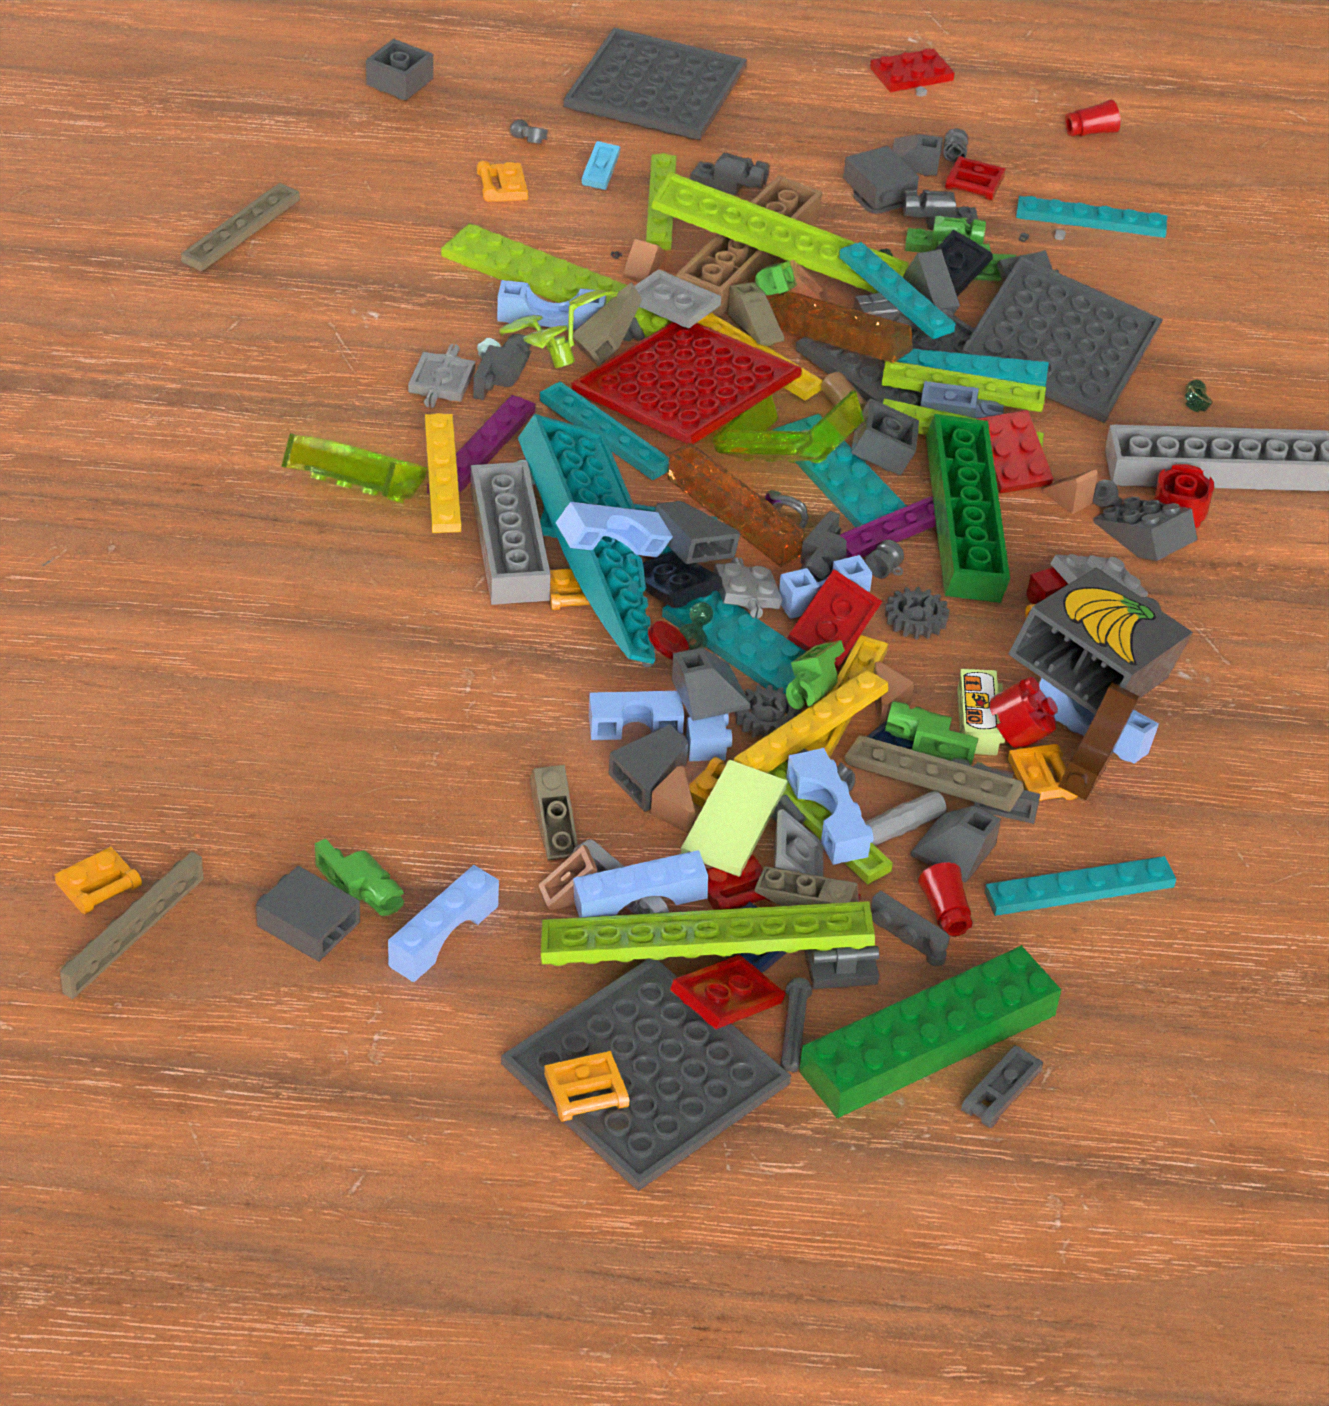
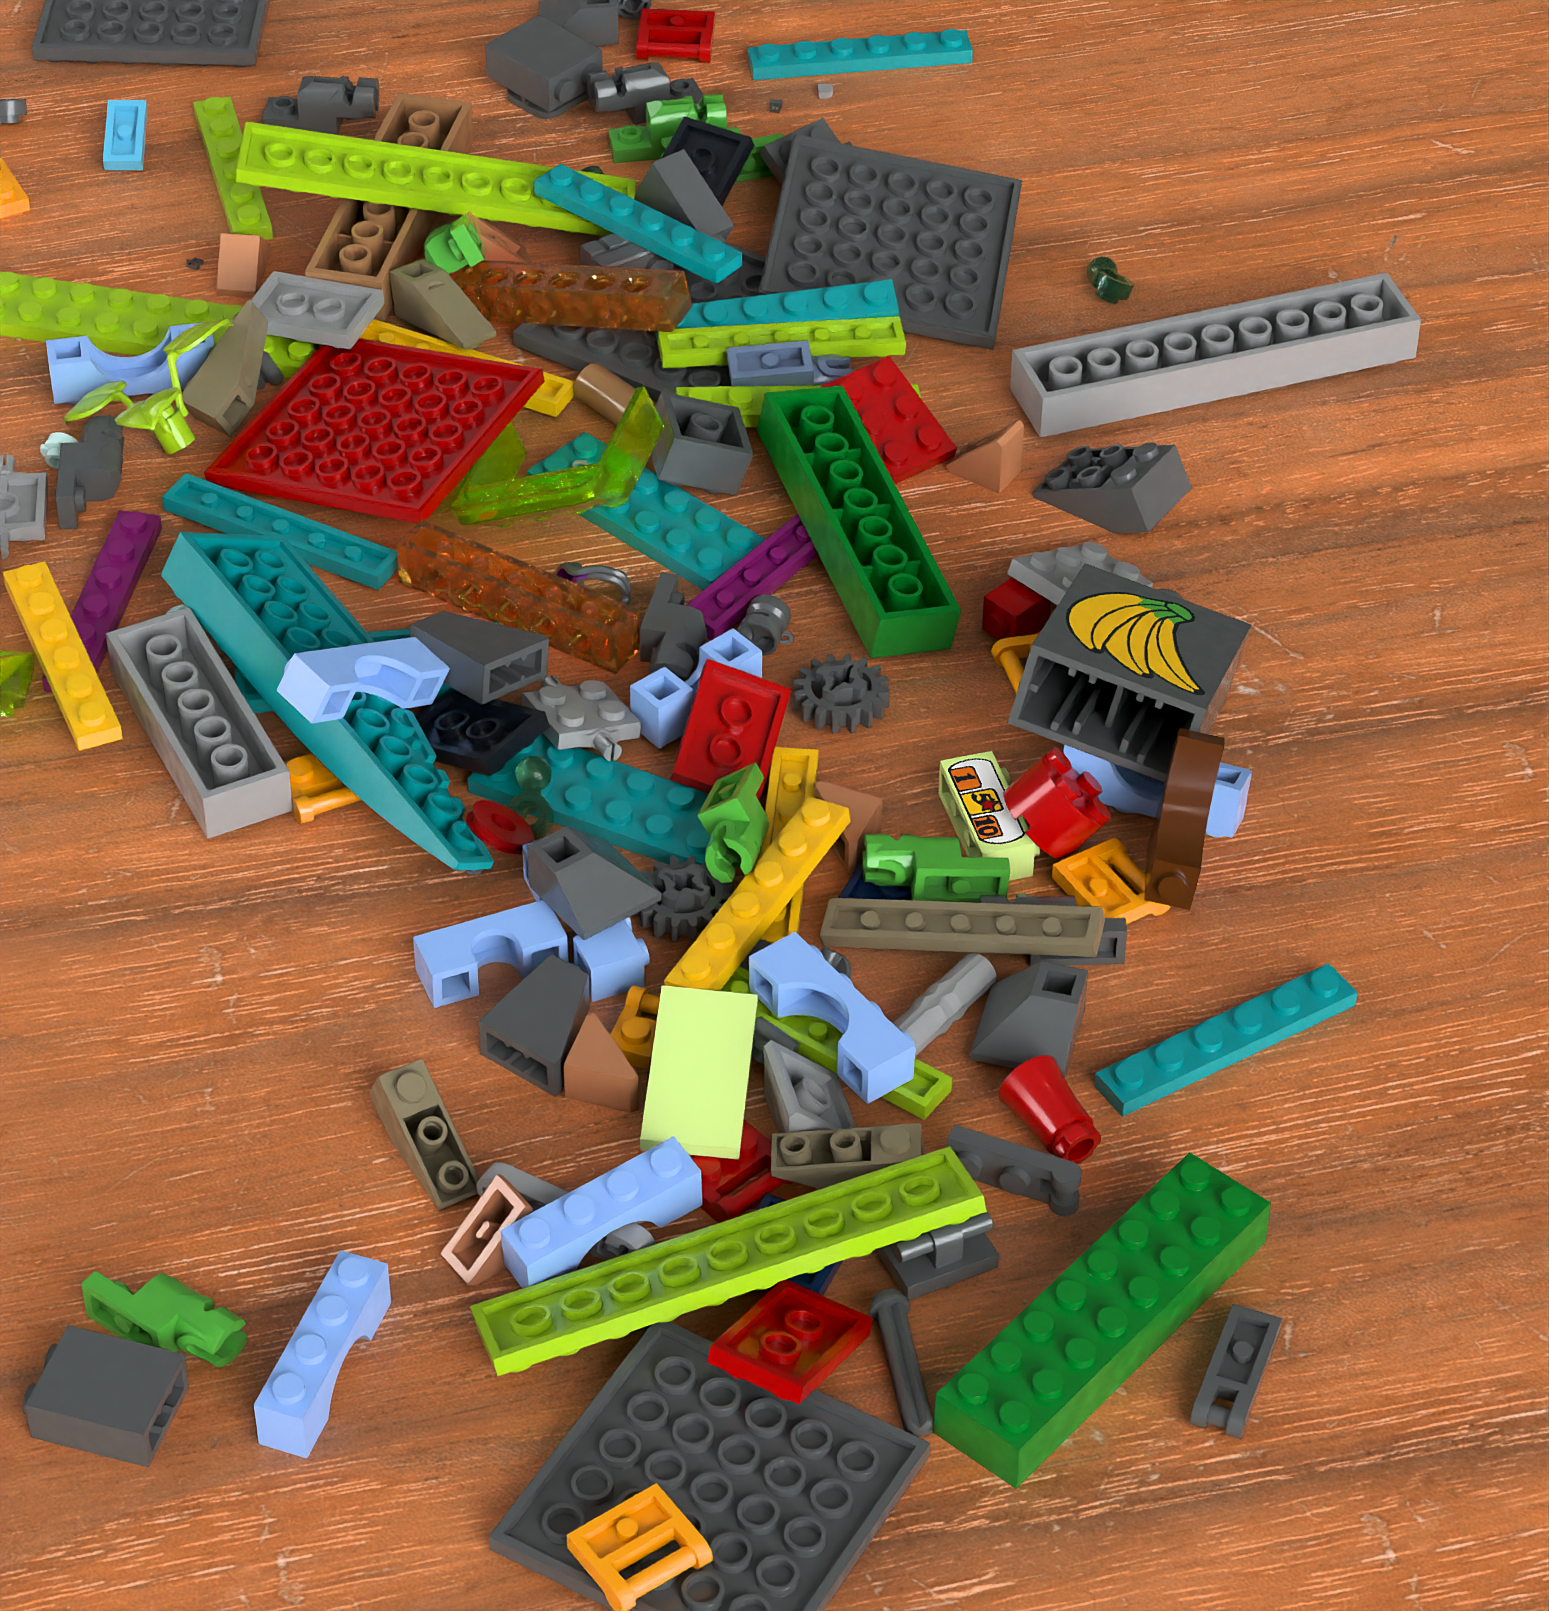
camera: 15 degrees left, 0 degrees up
(1106, 494) = (1040, 452): dark grey plate -> none
(1186, 487) = (1150, 415): red brick -> none

